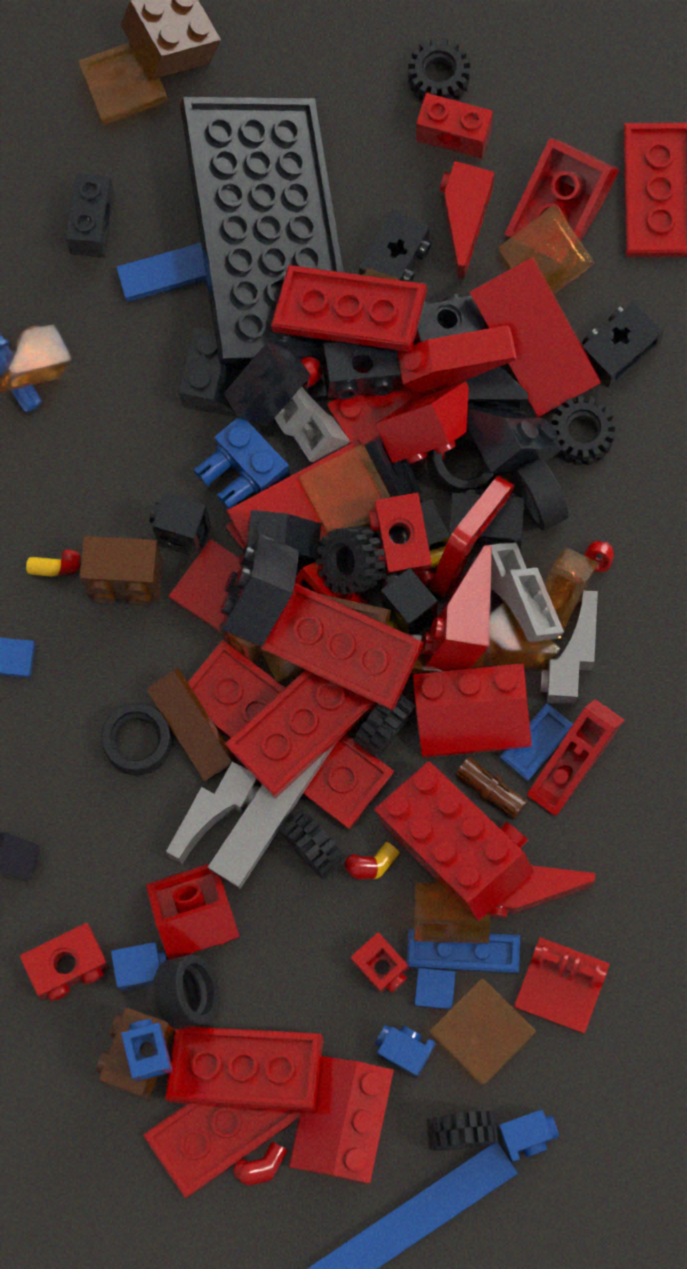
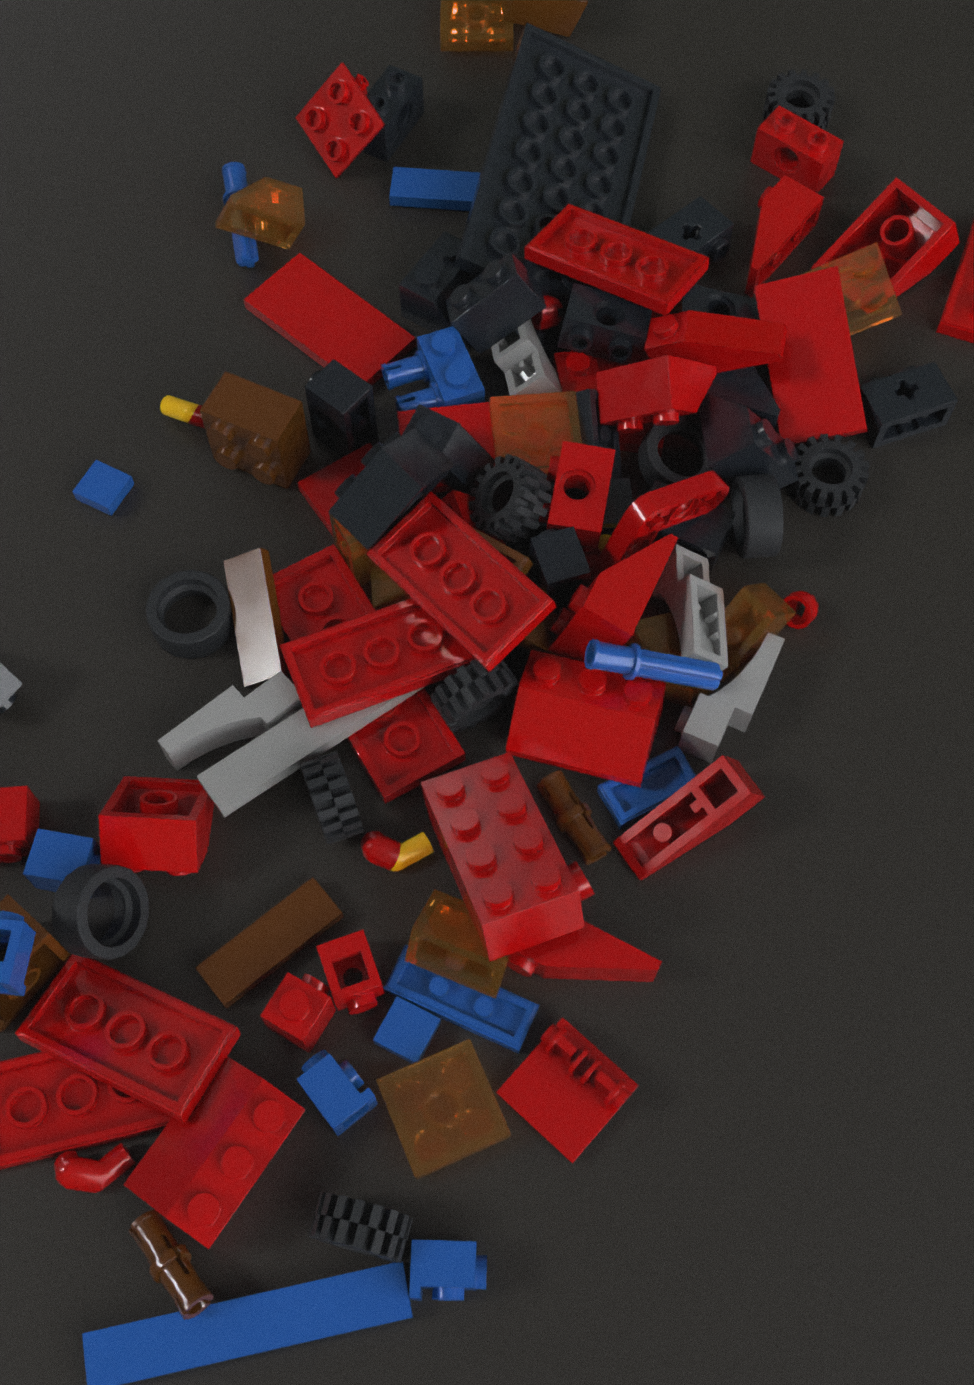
camera: 15 degrees right, 10 degrees down
(56, 244) = (340, 119): none -> red hinge
(127, 438) = (328, 319): none -> red tile
(311, 965) = (269, 942): none -> reddish brown tile
(344, 1203) = (170, 1264): none -> reddish brown pin
(356, 1005) = (299, 1010): none -> red brick
(498, 660) = (653, 665): none -> blue axle

